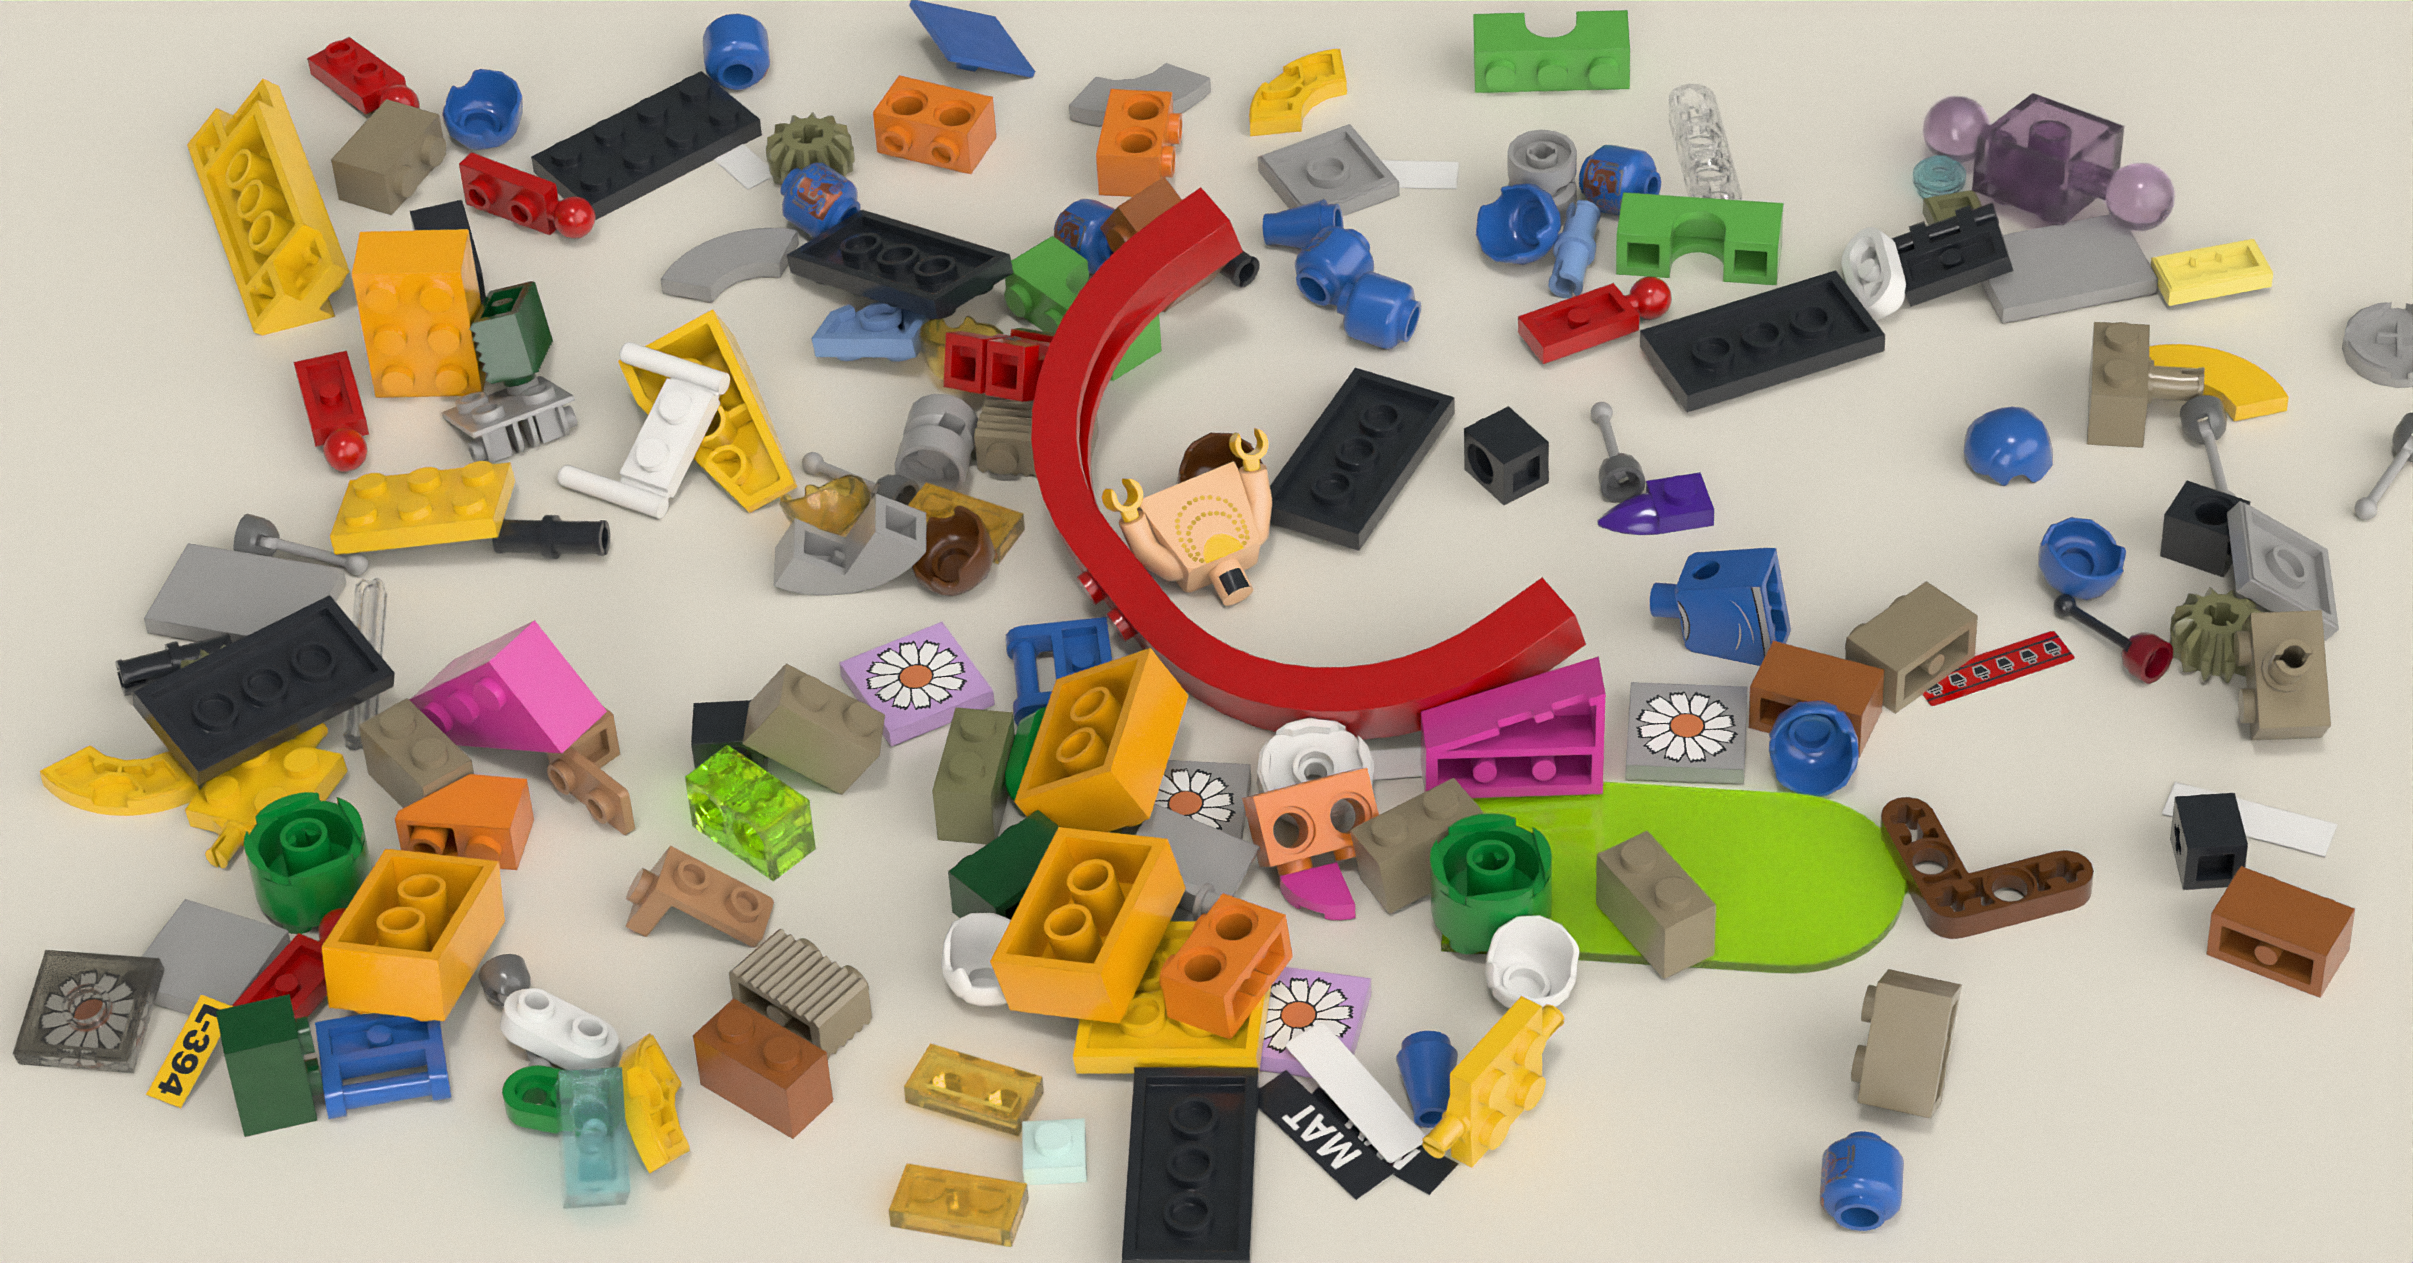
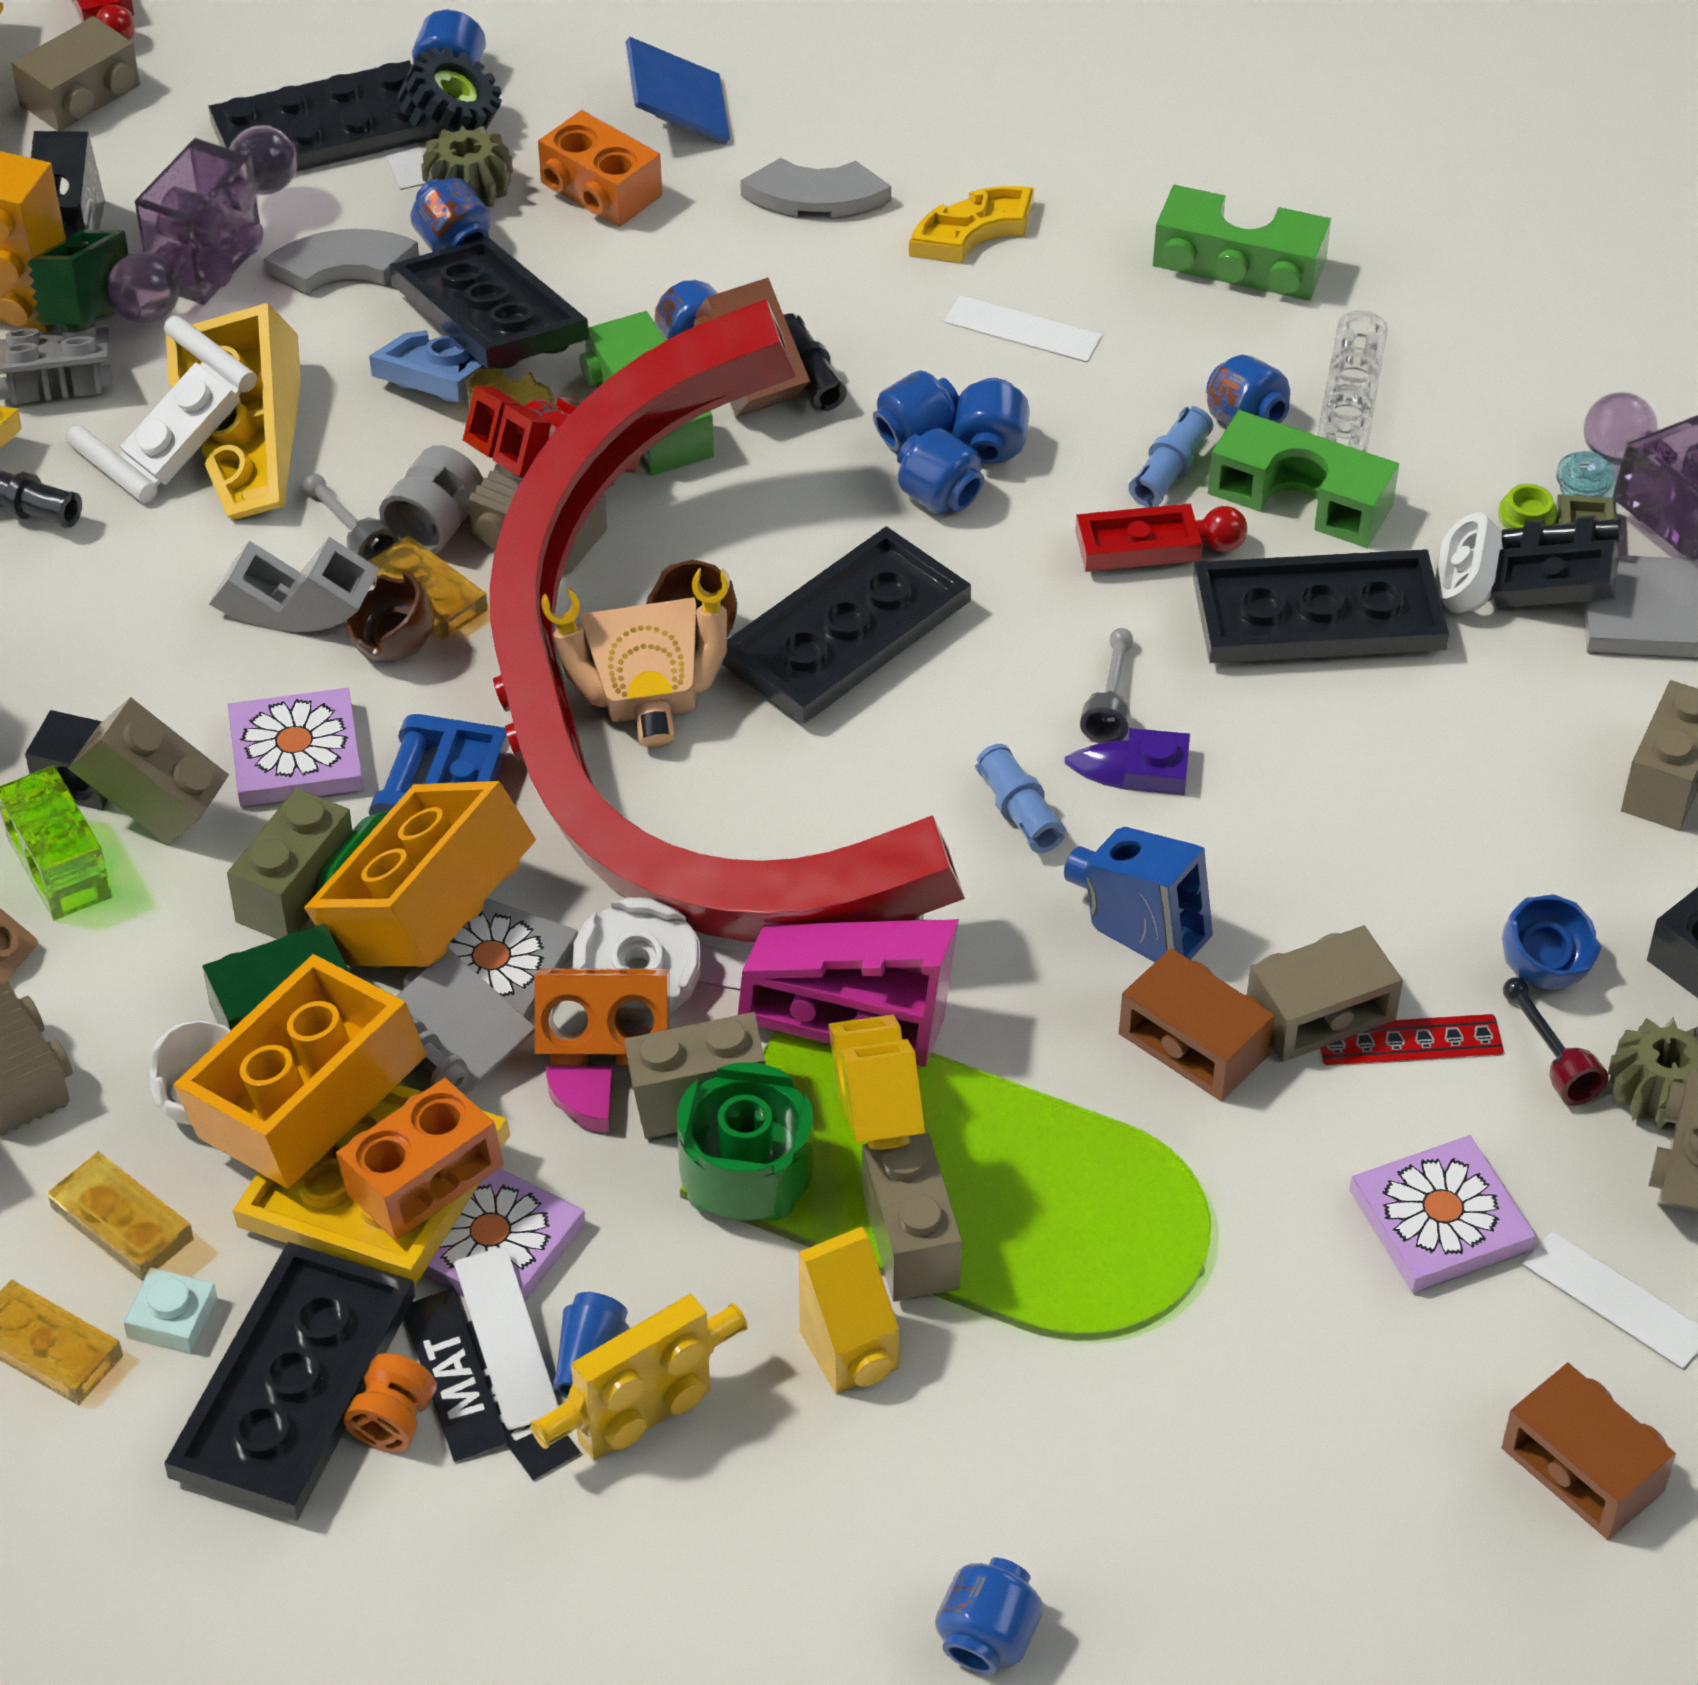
camera: 15 degrees right, 5 degrees up
(484, 110) = (184, 50): blue hair -> none
(523, 198) = (157, 127): red plate -> none
(596, 258) = (200, 222): none -> clear purple brick
(763, 91) = (448, 93): none -> black bush
(830, 507) = (295, 536): clear yellow hair -> none
(1137, 141) = (785, 234): orange brick -> none
(1284, 1174) = (393, 1396): none -> orange wheel
(1300, 224) = (901, 358): blue cone -> none
(1331, 168) = (962, 317): light grey tile -> none
(1406, 252) = (992, 417): none -> blue head
(1506, 455) = (996, 661): black brick -> none
(1518, 225) = (1120, 417): blue hair -> none
(1532, 961) = (751, 1247): white hair -> none
(1547, 161) = (1165, 372): light grey wheel -> none
(1579, 561) = (1020, 798): none -> medium blue pin
(1588, 800) = (877, 1081): none -> yellow arch
(1639, 989) = (847, 1312): none -> yellow slope
(1686, 733) = (1045, 1023): tile -> none
(1813, 748) = (1164, 1082): blue hair -> none
(1900, 213) = (1527, 503): none -> lime plate
(1906, 1042) = (1101, 1468): dark tan brick -> none
(2008, 445) = (1531, 791): blue hair -> none
(2049, 881) = (1256, 1289): reddish brown beam -> none
(2082, 791) = (1442, 1213): none -> tile
(2208, 840) = (1552, 1314): black brick -> none

